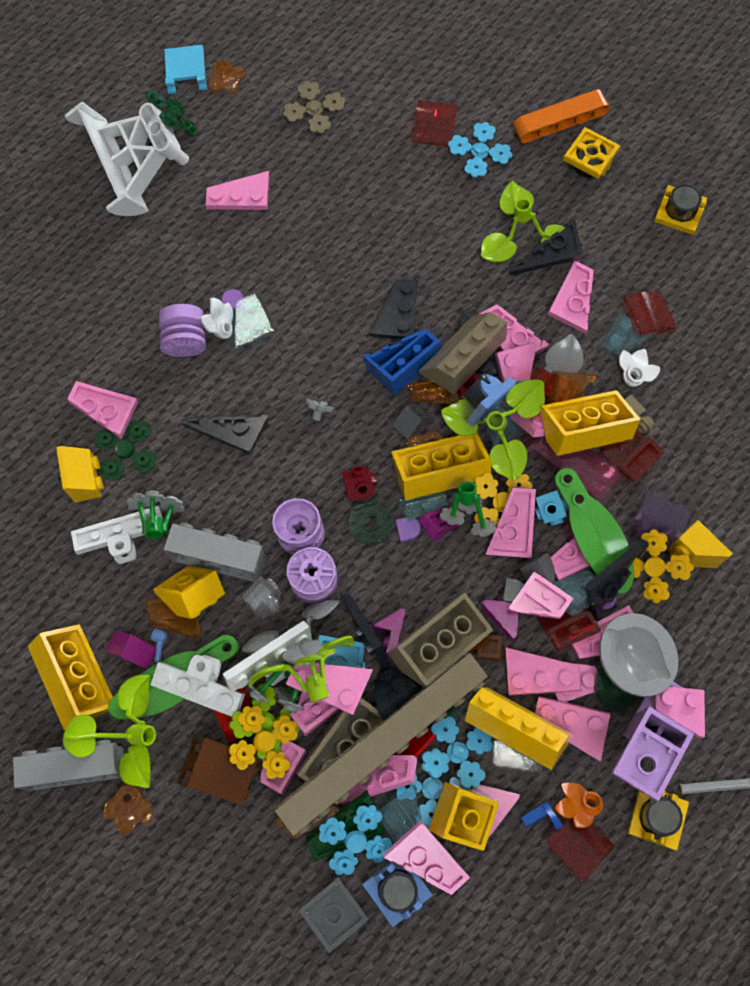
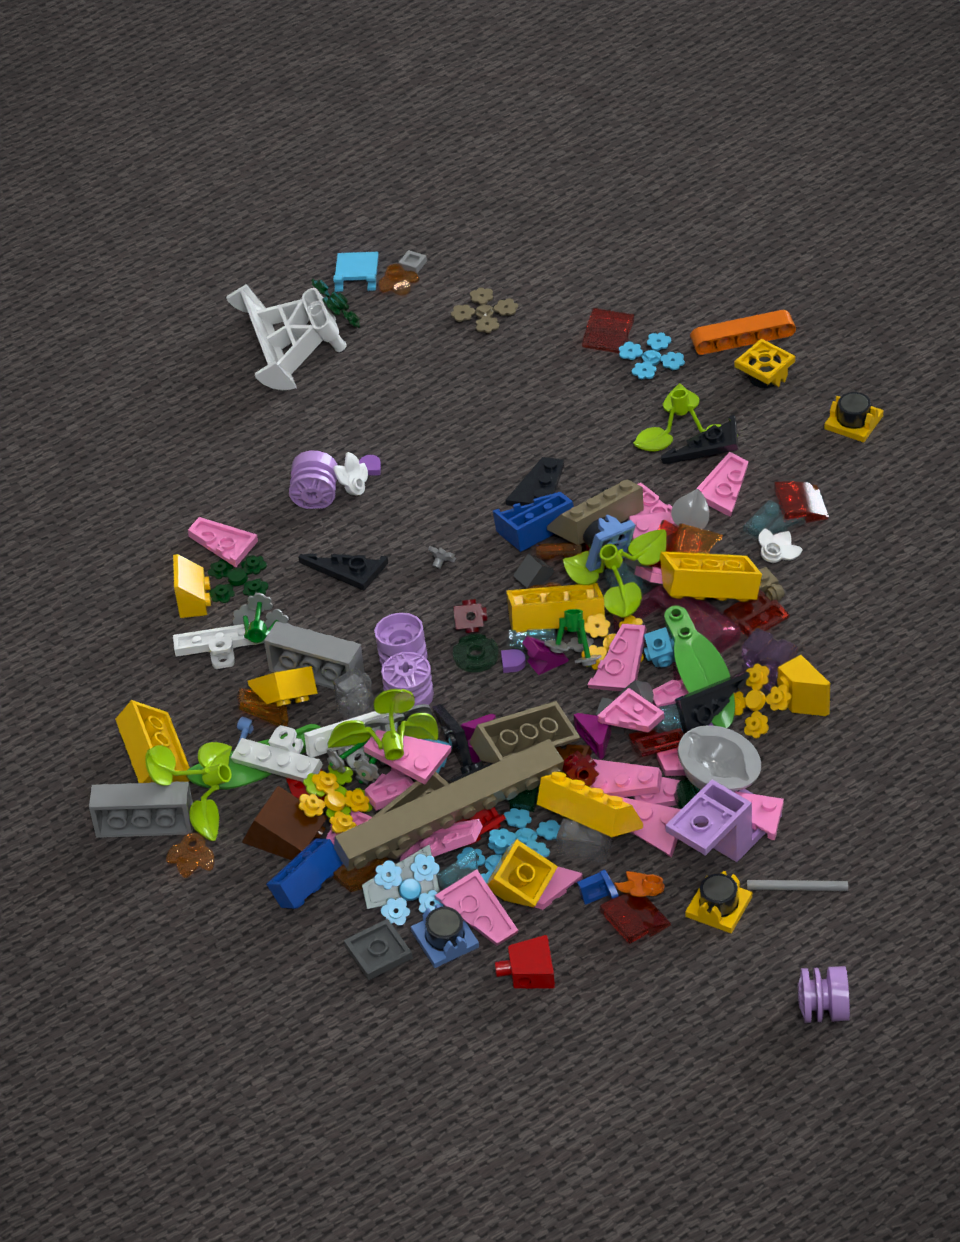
camera: 10 degrees right, 25 degrees down
(131, 649) = (216, 729): magenta slope -> none
(237, 55) = (413, 261): none -> light grey plate
(240, 194) = (393, 378): bright pink wing -> none
(246, 831) = (305, 874): none -> blue brick
(250, 321) = (384, 482): clear light blue wing -> none
(487, 921) = (528, 964): none -> red torso
(500, 673) = (580, 768): none -> dark red brick

